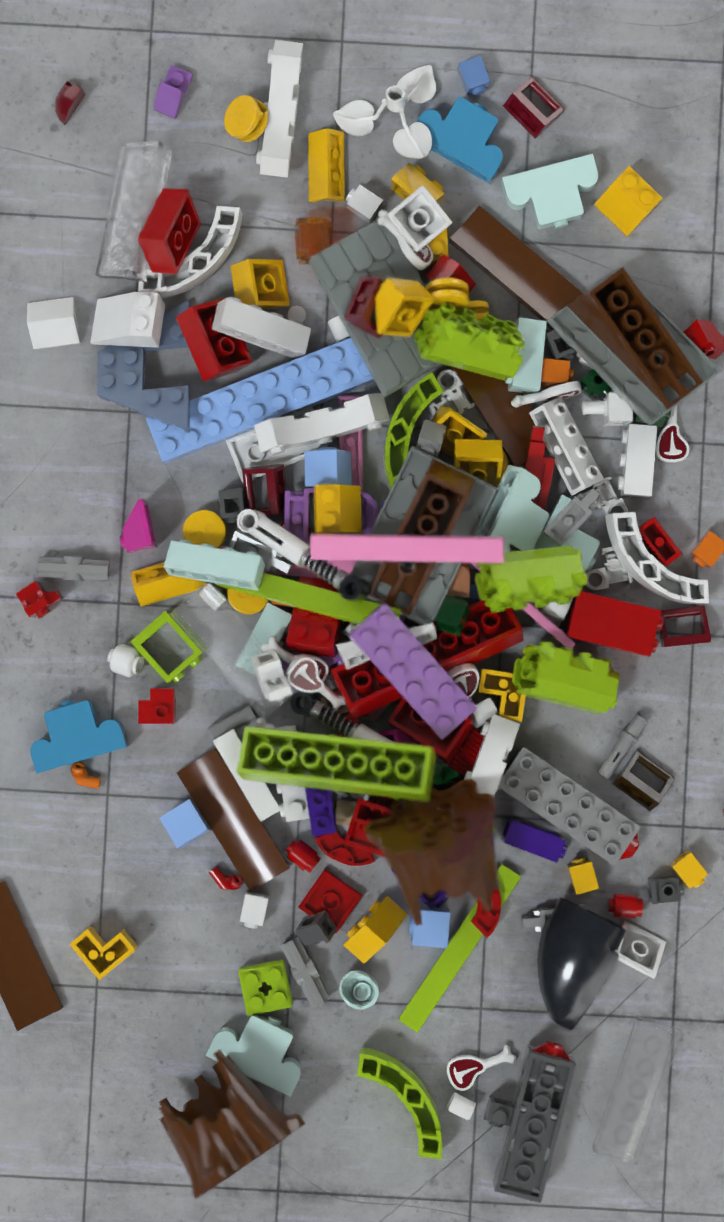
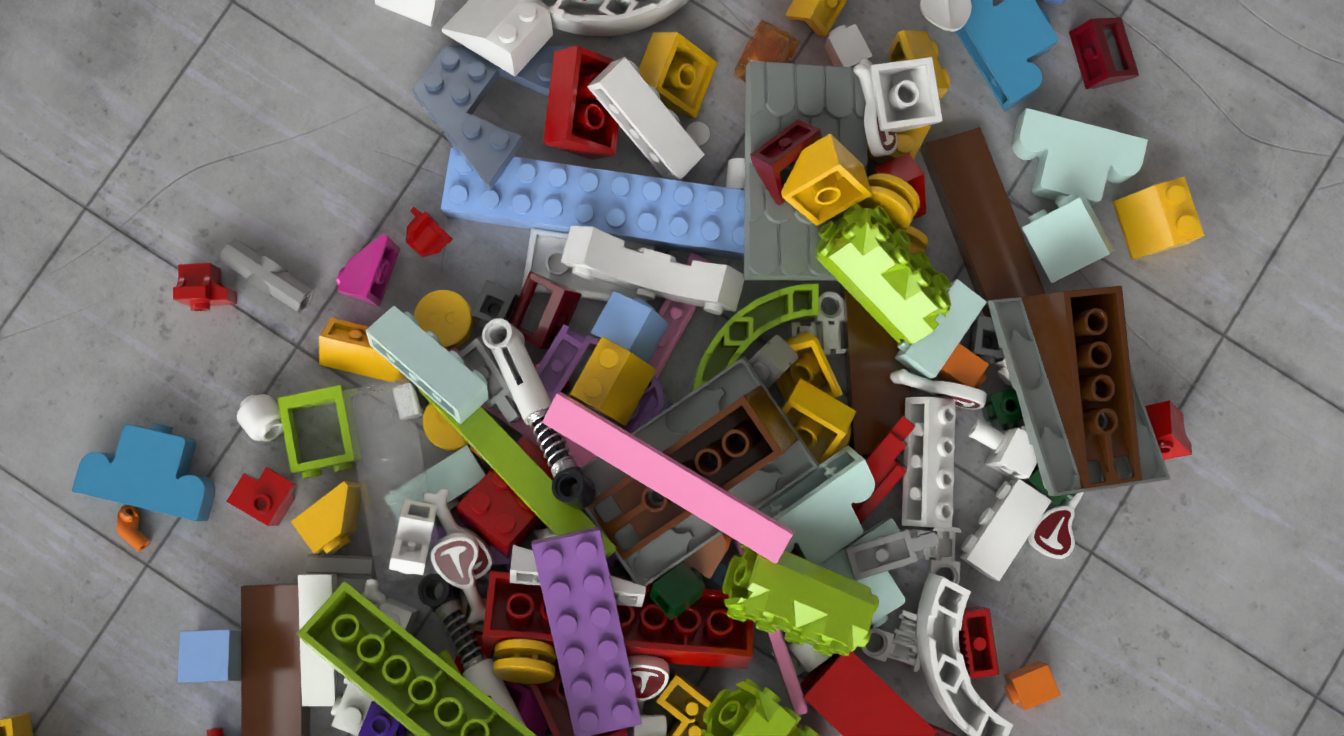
camera: 25 degrees right, 5 degrees down
(160, 484) = (425, 234): none -> red piece
(210, 697) = (331, 519): none -> yellow slope
(384, 711) = (524, 661): none -> yellow head
(575, 249) = (1067, 237): none -> light aqua brick

